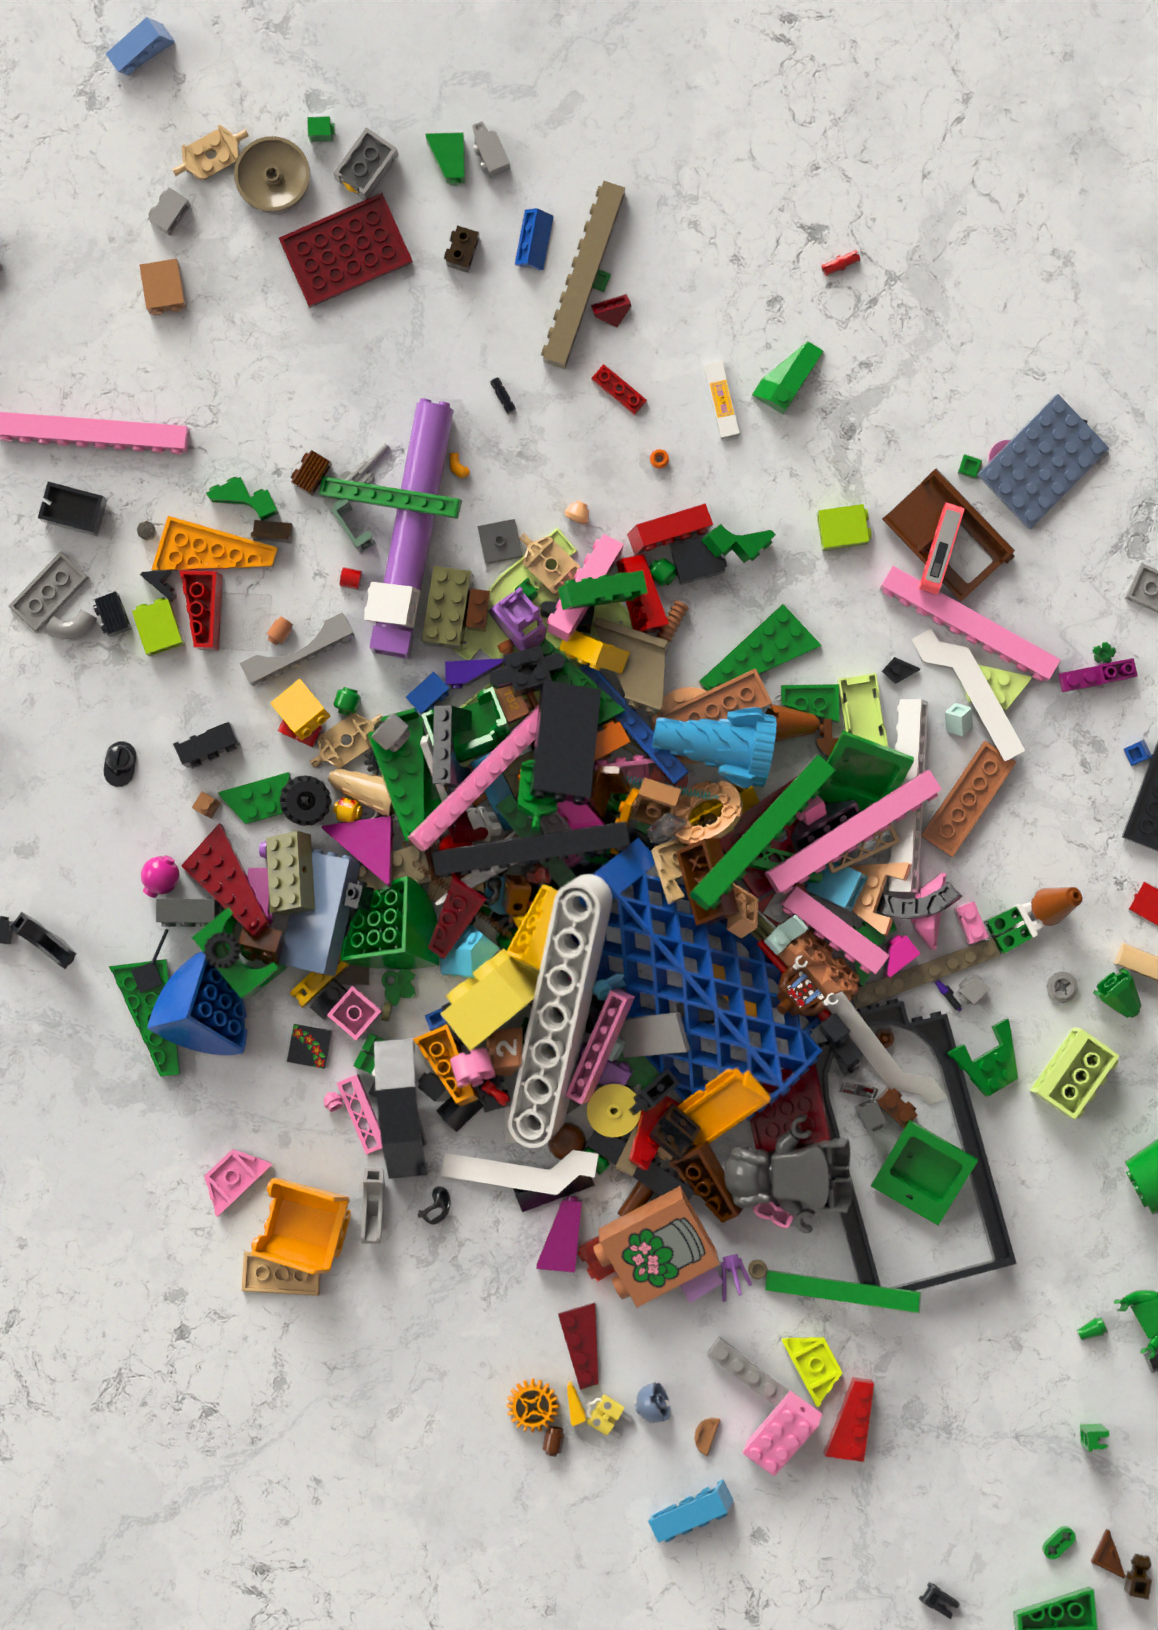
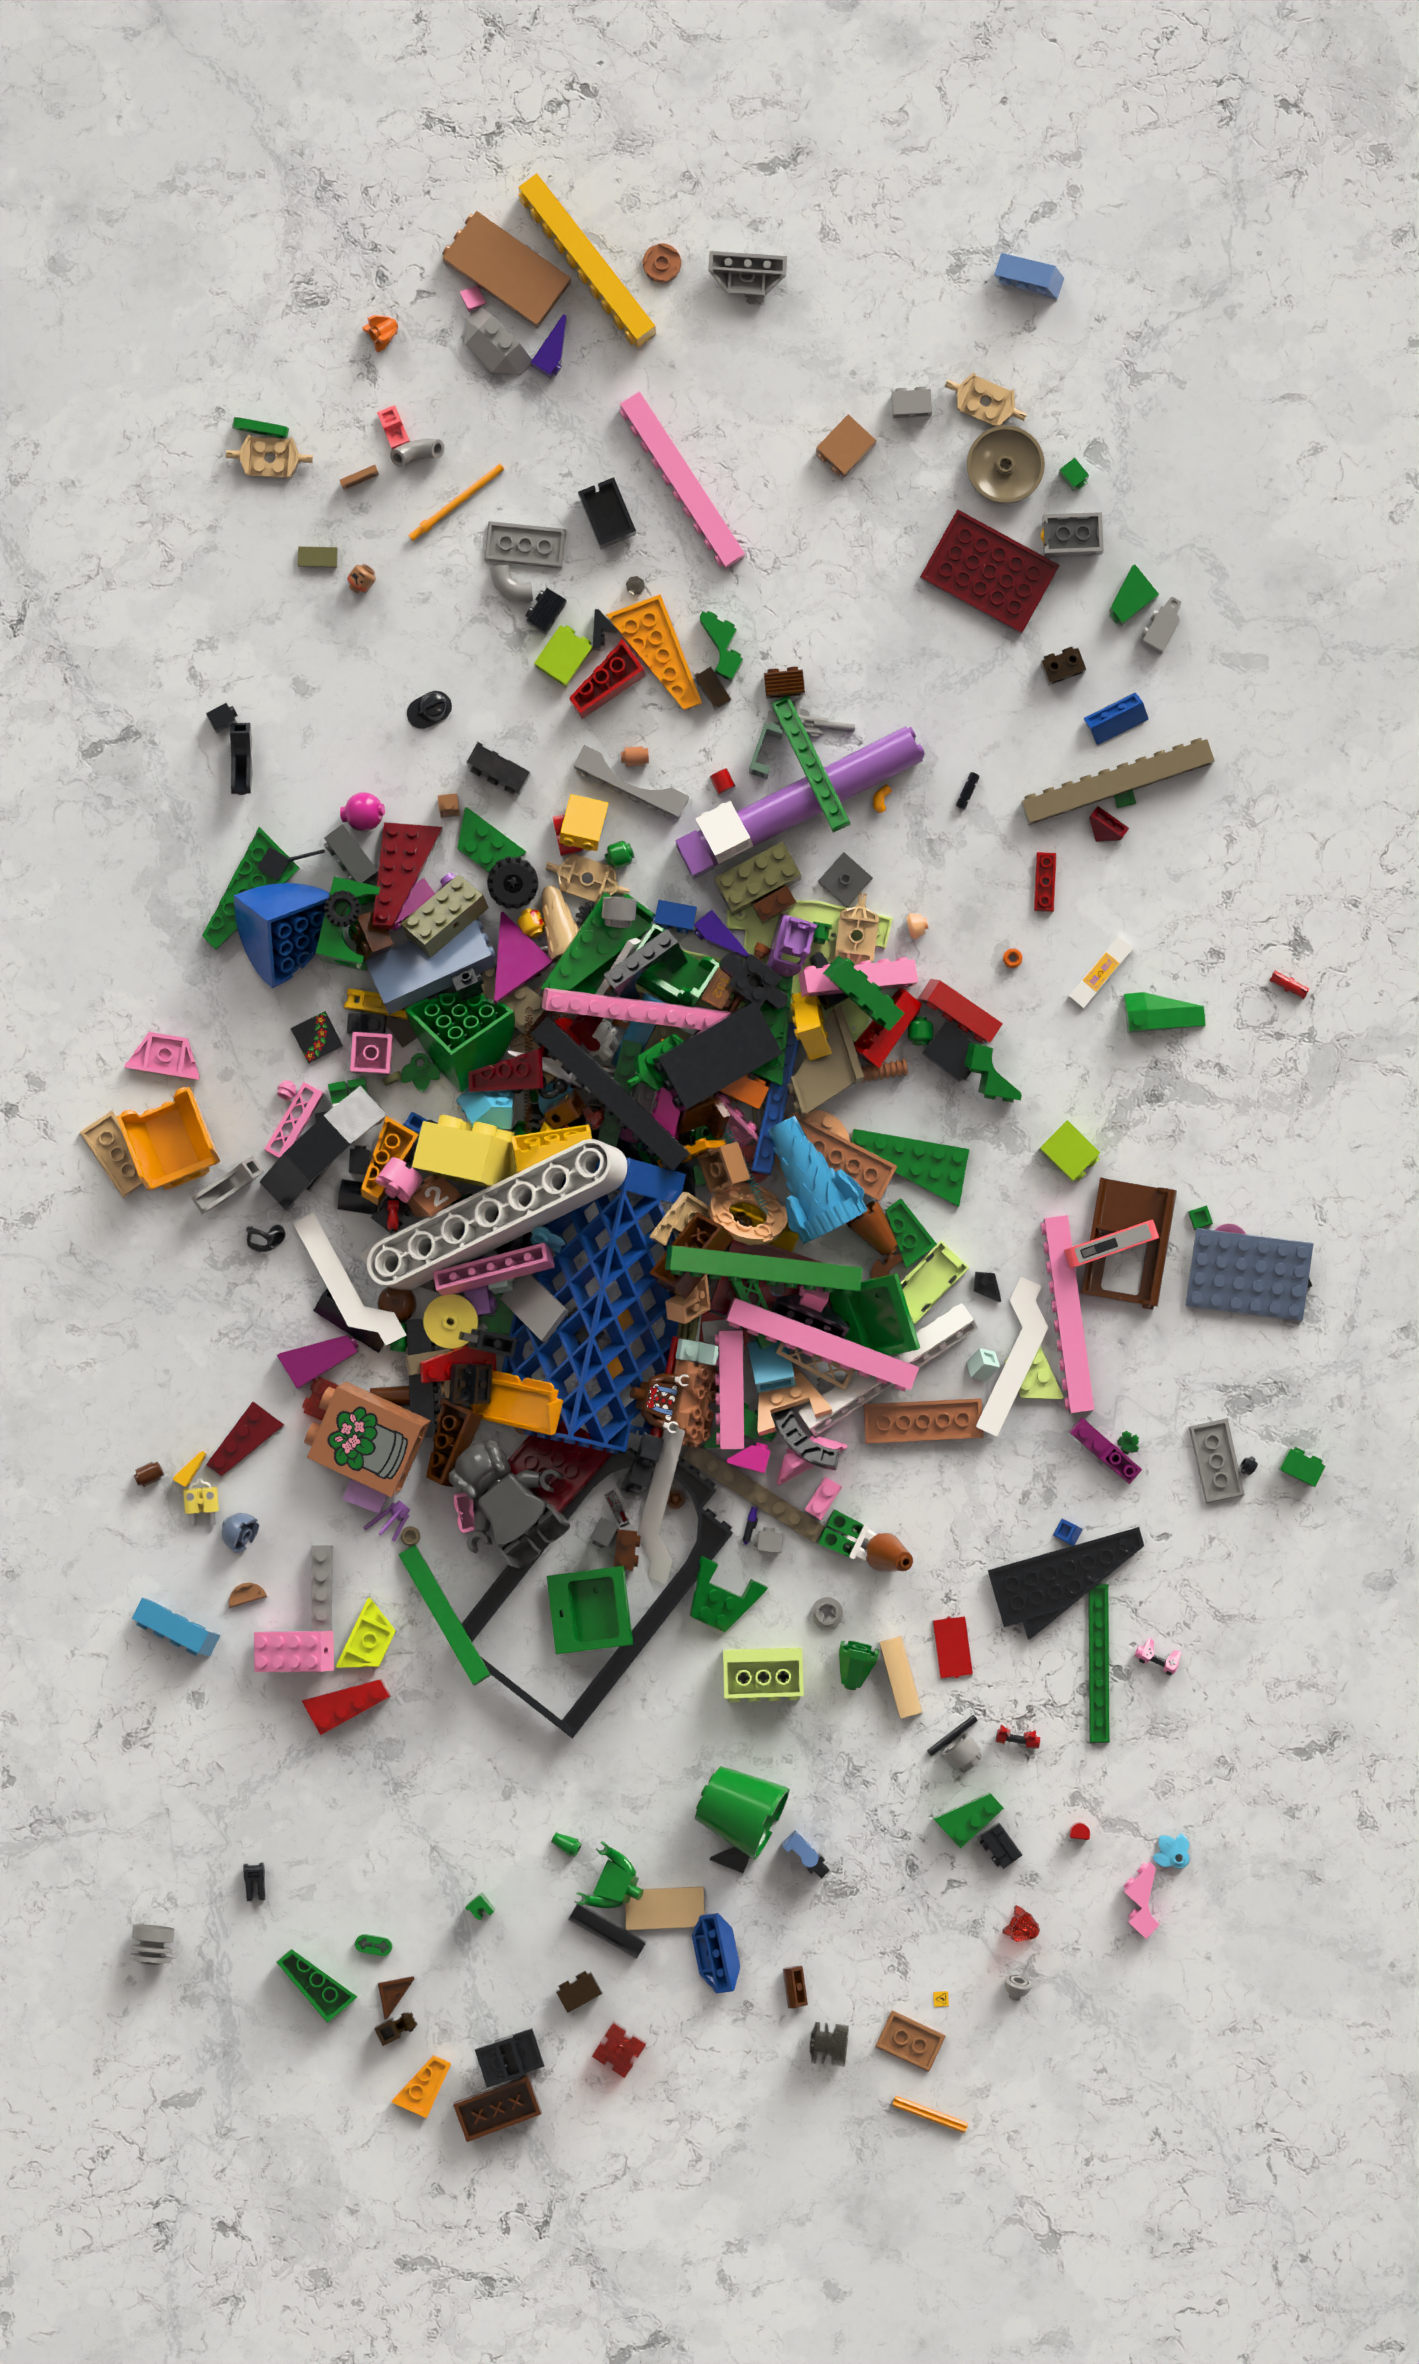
camera: 50 degrees right, 0 degrees up
(542, 1391) = (164, 1426): light orange gear -> none
(665, 828) = (709, 1190): clear slope -> none

